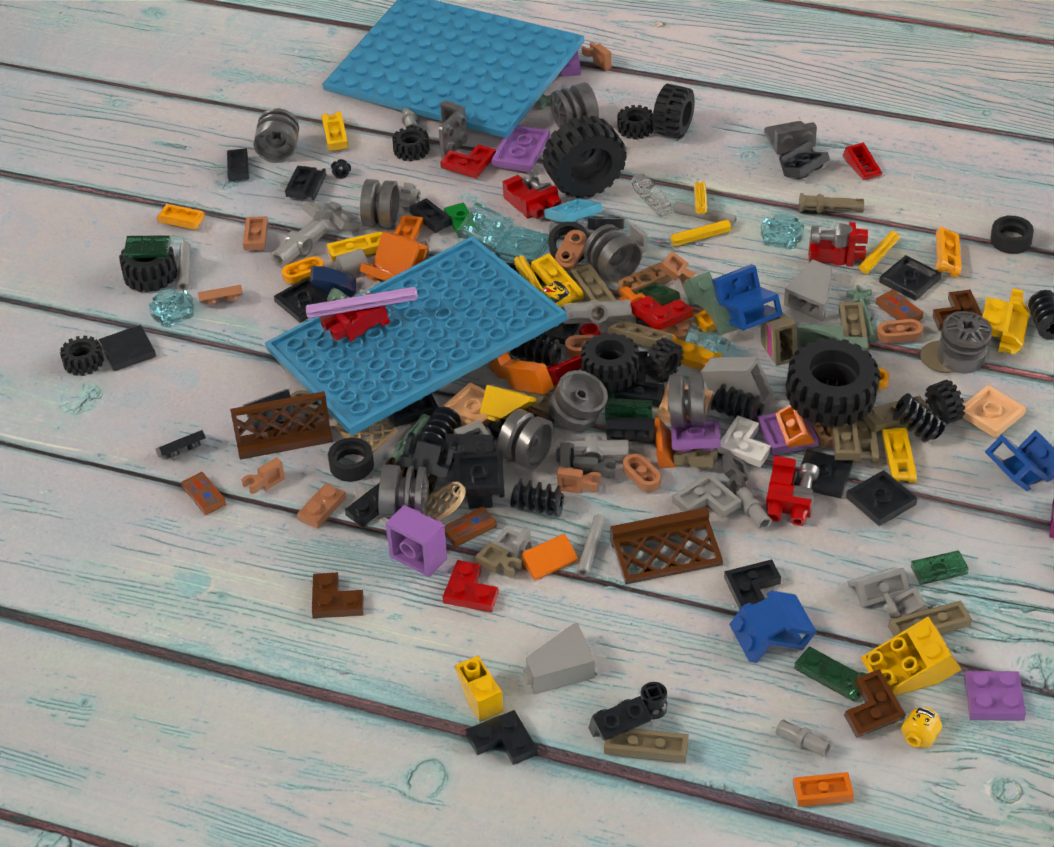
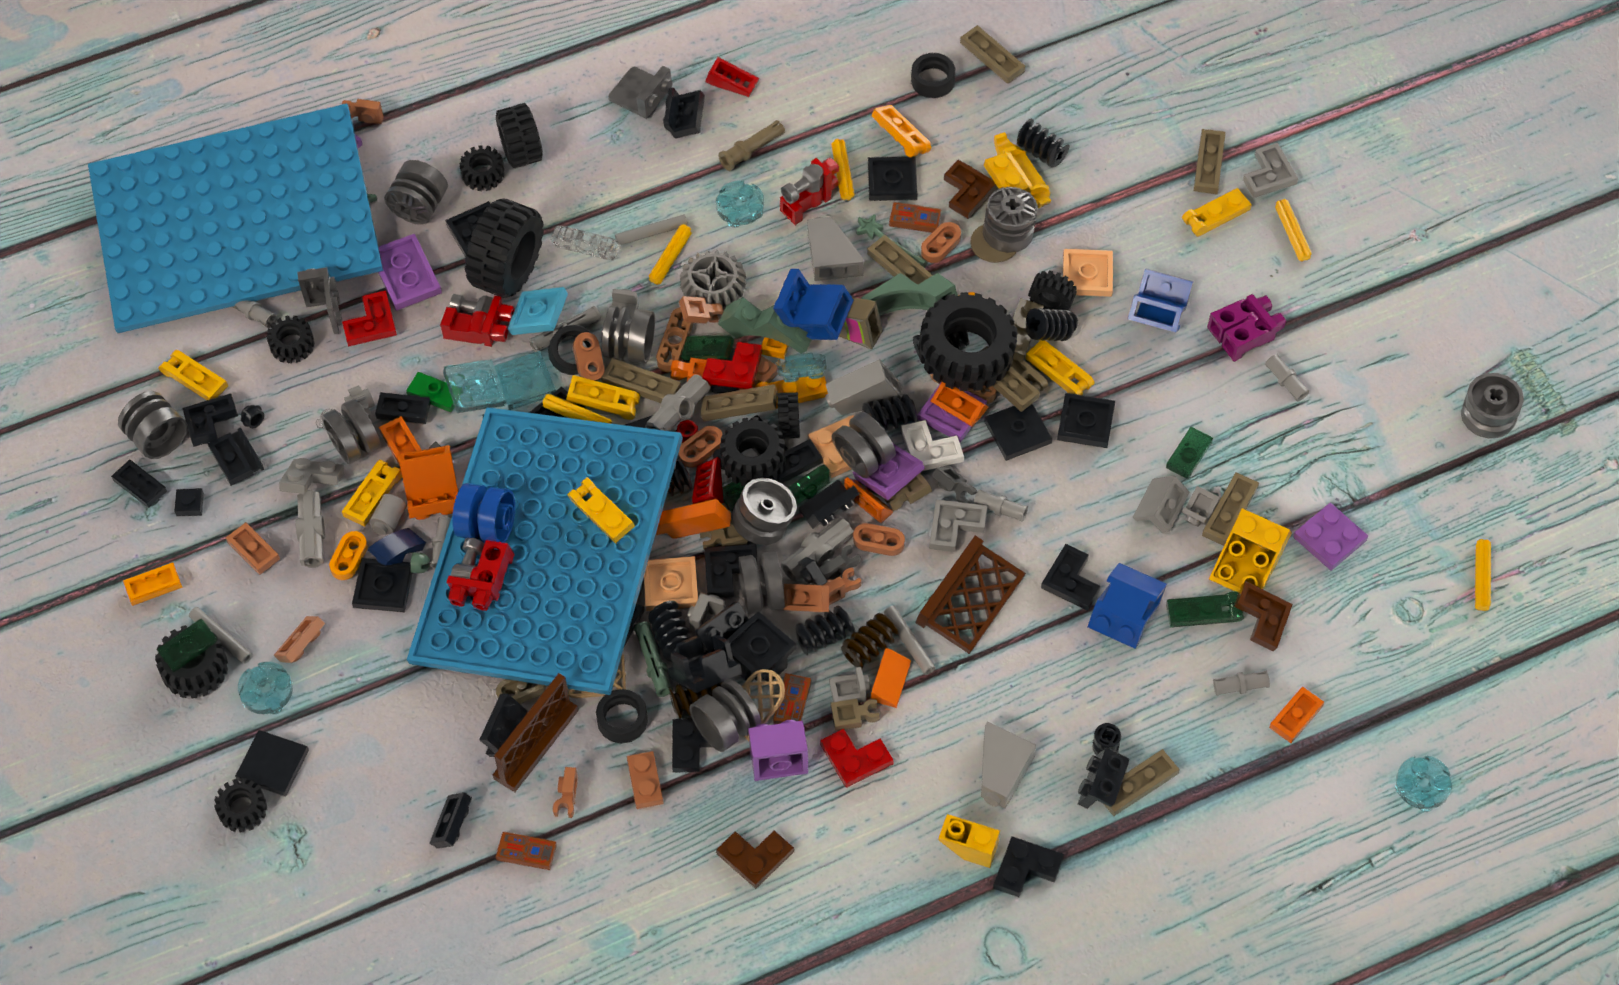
camera: 45 degrees left, 15 degrees up
(253, 191) = (189, 502): none -> black plate
(313, 151) = (203, 415): none -> black plate
(361, 302) = (485, 556): lavender axle -> none
(388, 273) = (483, 513): none -> blue wheel
(465, 325) = (601, 510): none -> yellow plate
(501, 402) = (709, 559): yellow slope -> none
(546, 468) = (806, 597): none -> nougat plate
(558, 293) = (627, 413): head -> none
(558, 523) = (868, 639): none -> dark brown piece
(595, 222) = (580, 303): black beam -> none
(700, 197) = (635, 216): yellow axle -> none
(712, 256) = (700, 272): none -> light grey gear
(789, 498) = (1016, 476): red hips -> none
(921, 727) = (1312, 606): yellow head -> none

